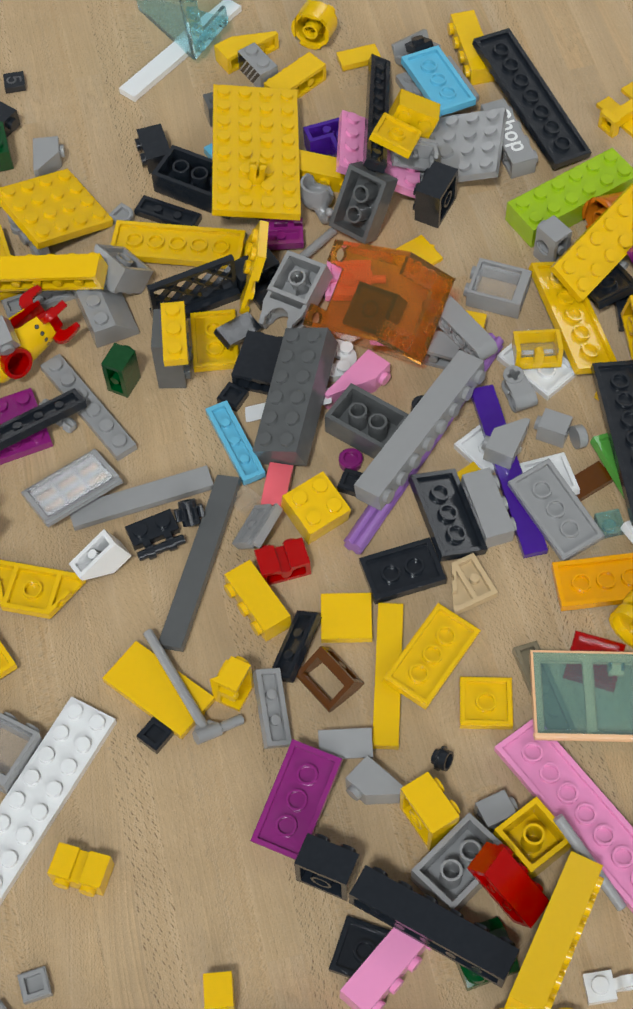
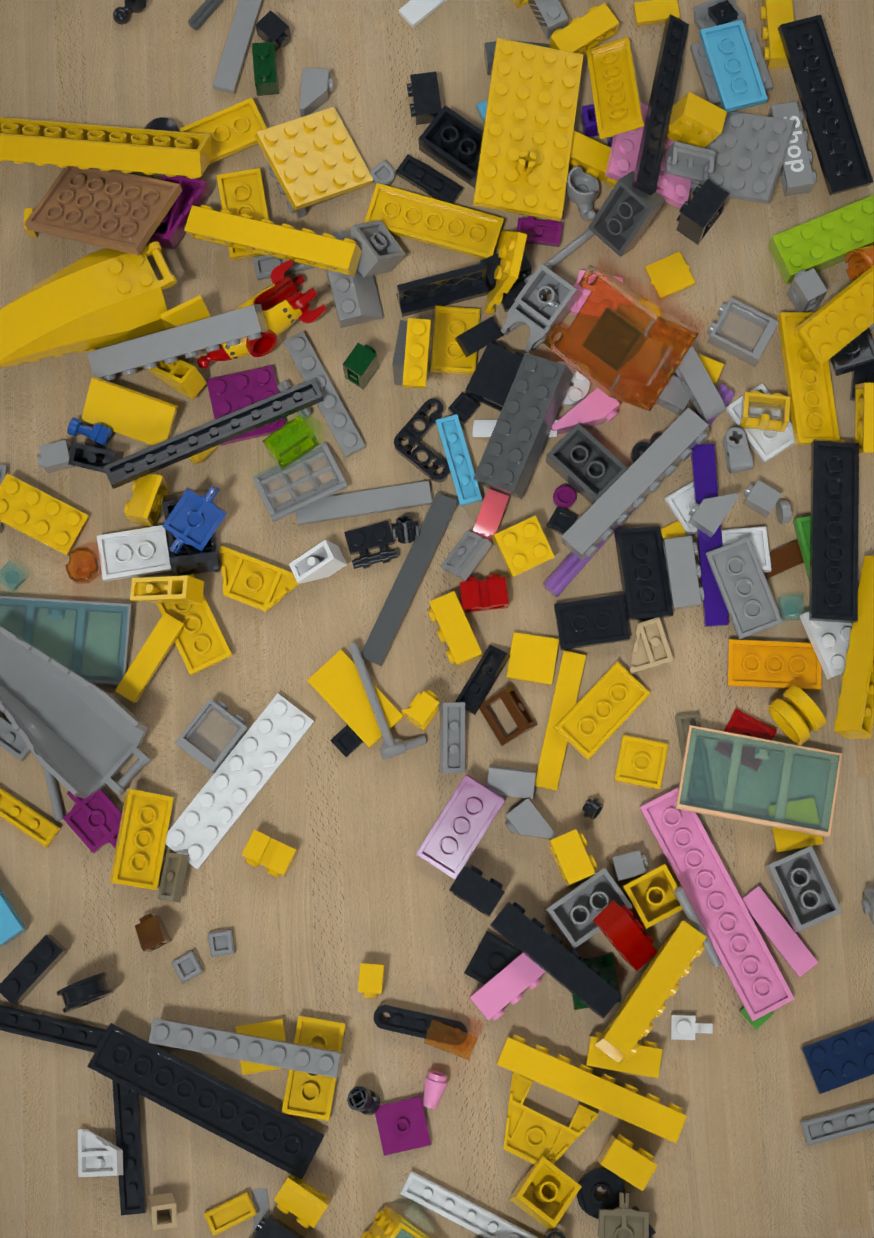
camera: 10 degrees right, 20 degrees up
(57, 450) = (290, 442): none -> clear neon green brick
(188, 434) = (415, 437): none -> black beam
(332, 106) = (614, 88): none -> yellow plate
(395, 135) = (673, 147): yellow tile -> none

